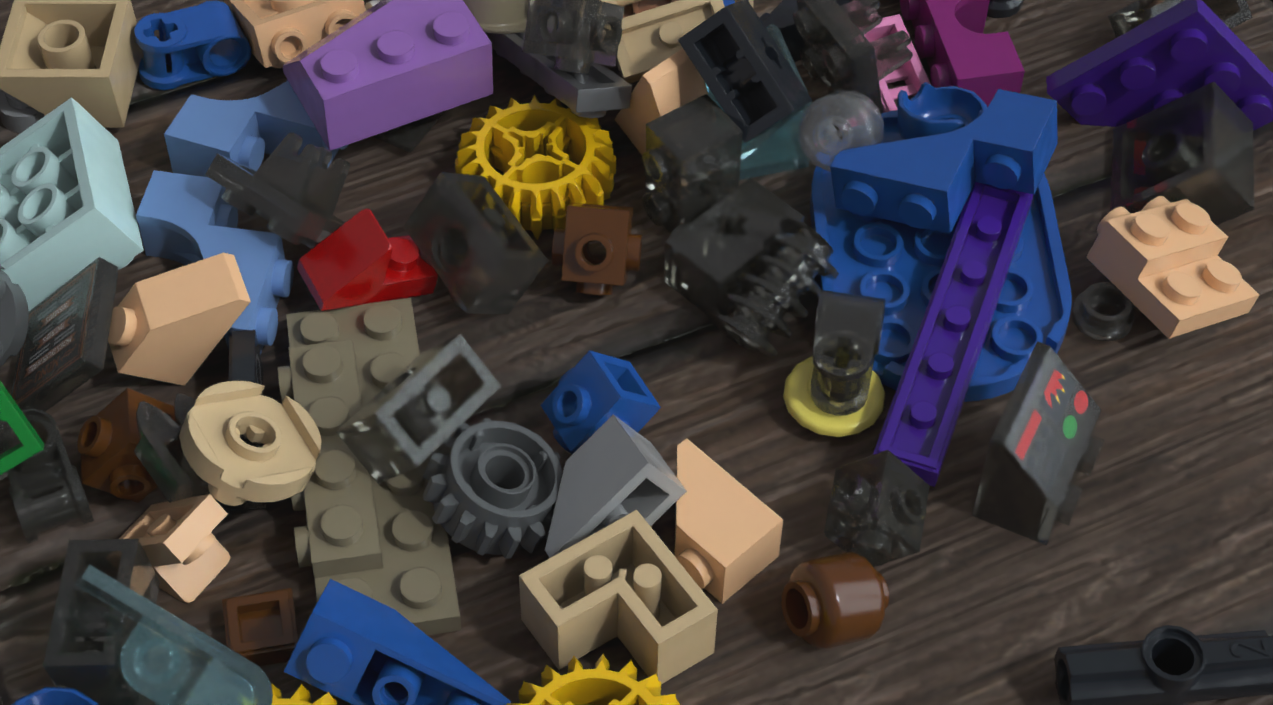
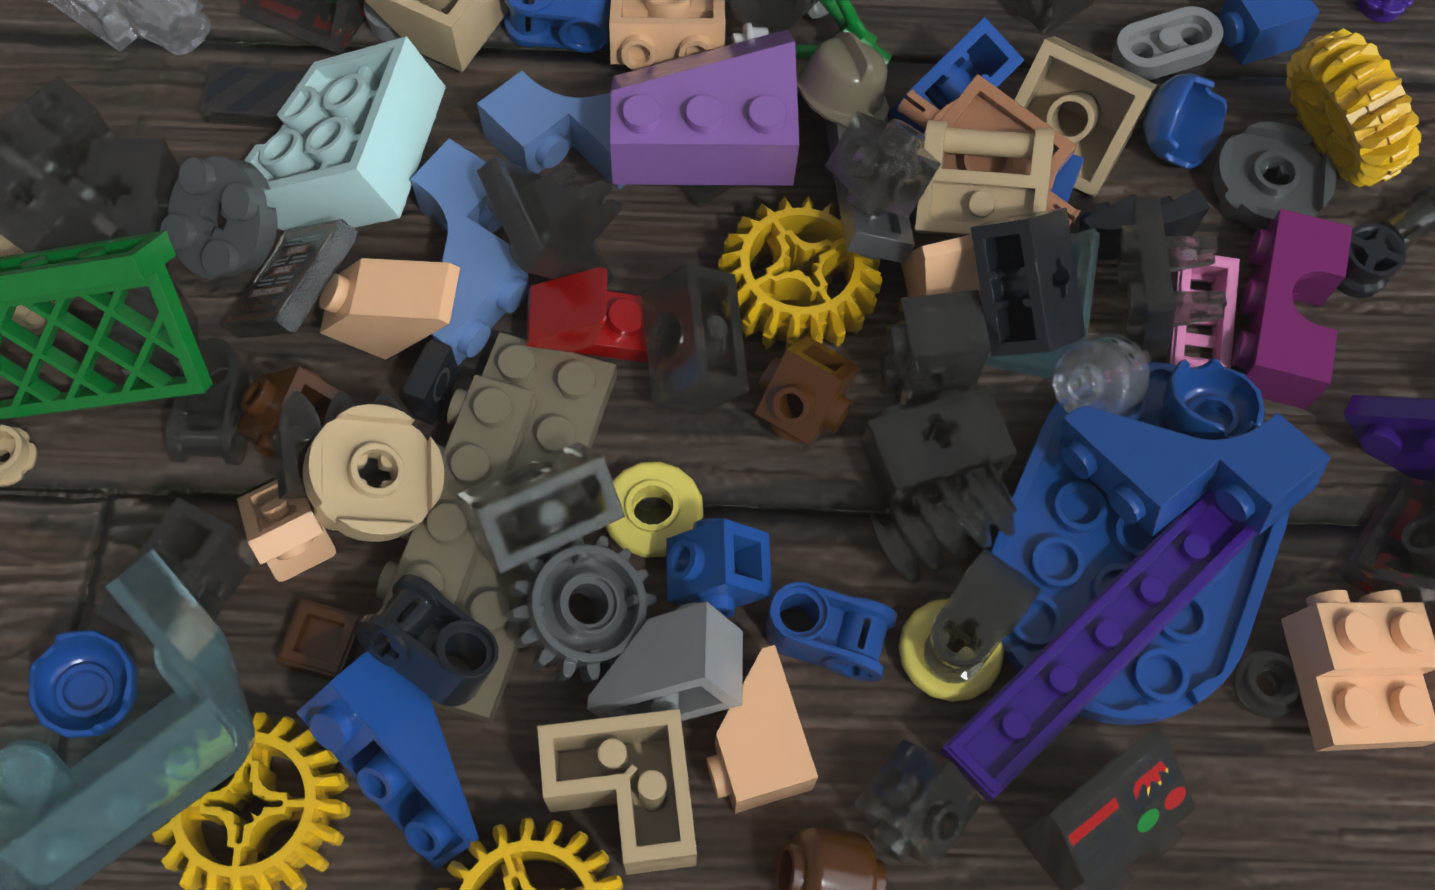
camera: 25 degrees right, 15 degrees up
(389, 556) = (425, 639): none -> black piece
(522, 376) = (659, 481): none -> light yellow piece
(724, 418) = (835, 630): none -> blue piece

